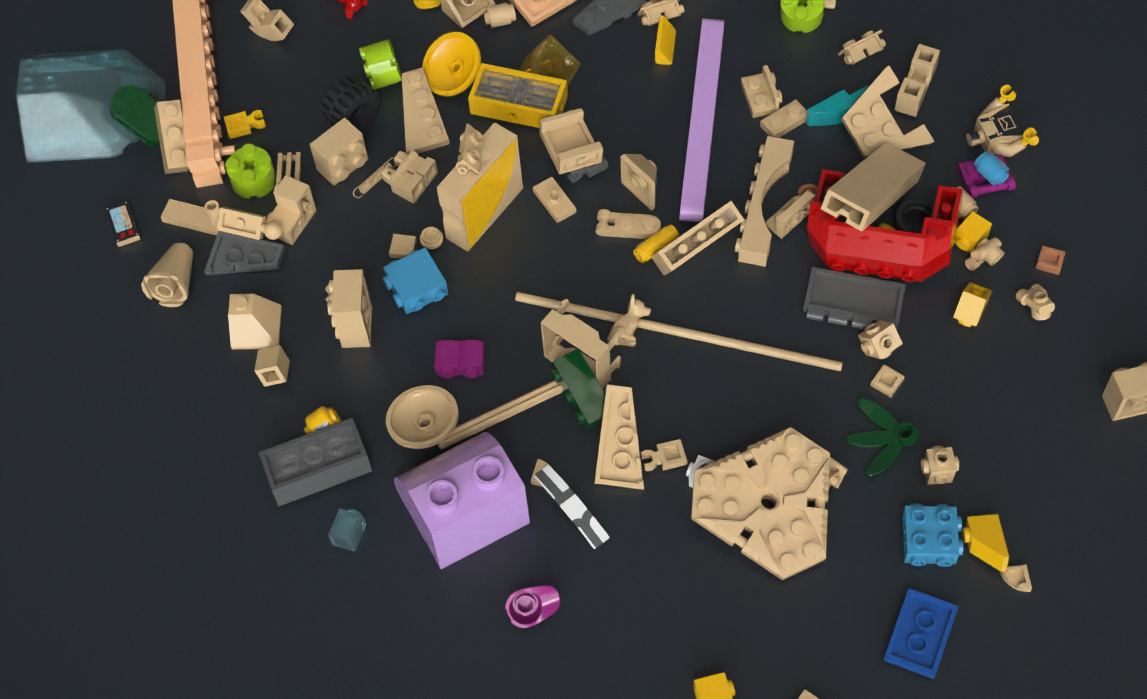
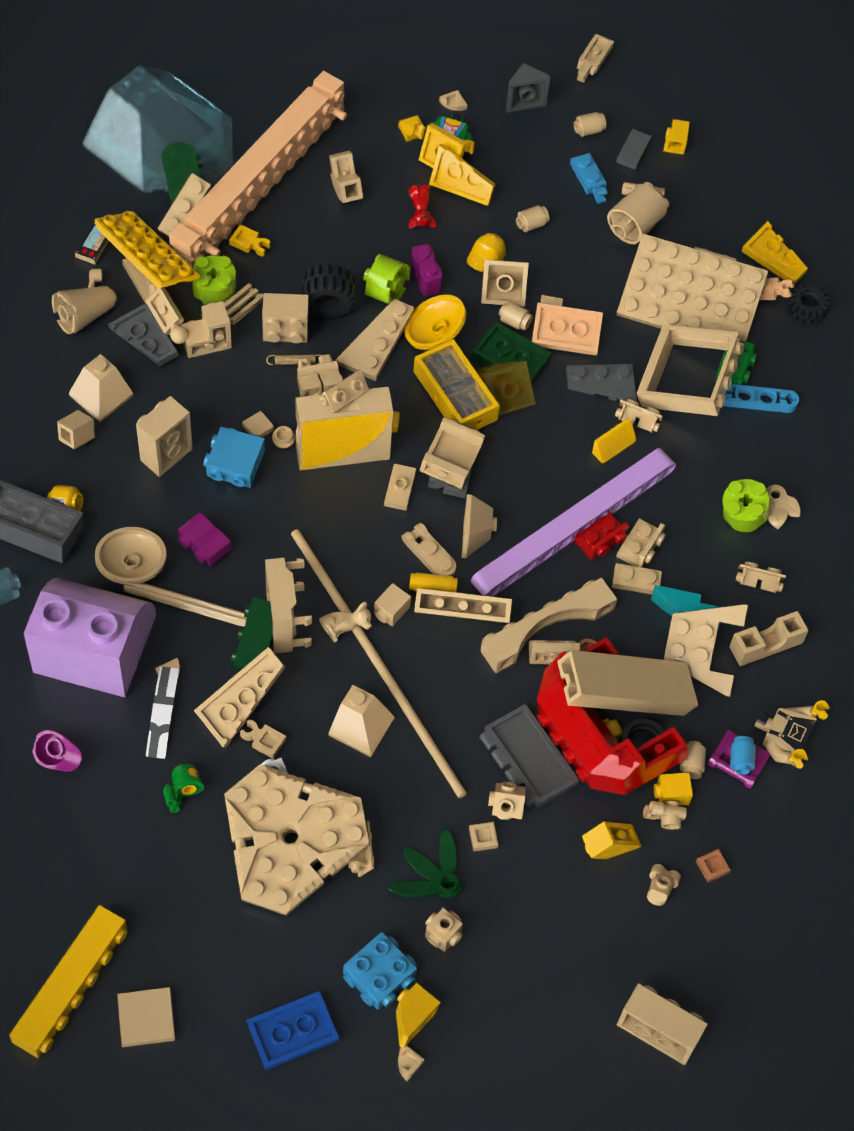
camera: 35 degrees right, 0 degrees up
(152, 246) = (95, 275): none -> tan hand
(176, 191) = (145, 249): none -> yellow plate
(403, 35) = (426, 270): none -> magenta brick
(518, 41) = (506, 346): none -> dark green plate
(646, 282) = (392, 605): none -> tan brick
(648, 538) = (185, 783): none -> green piece
(717, 381) = (361, 721): none -> tan slope
(729, 113) = (601, 536): none -> red bracket

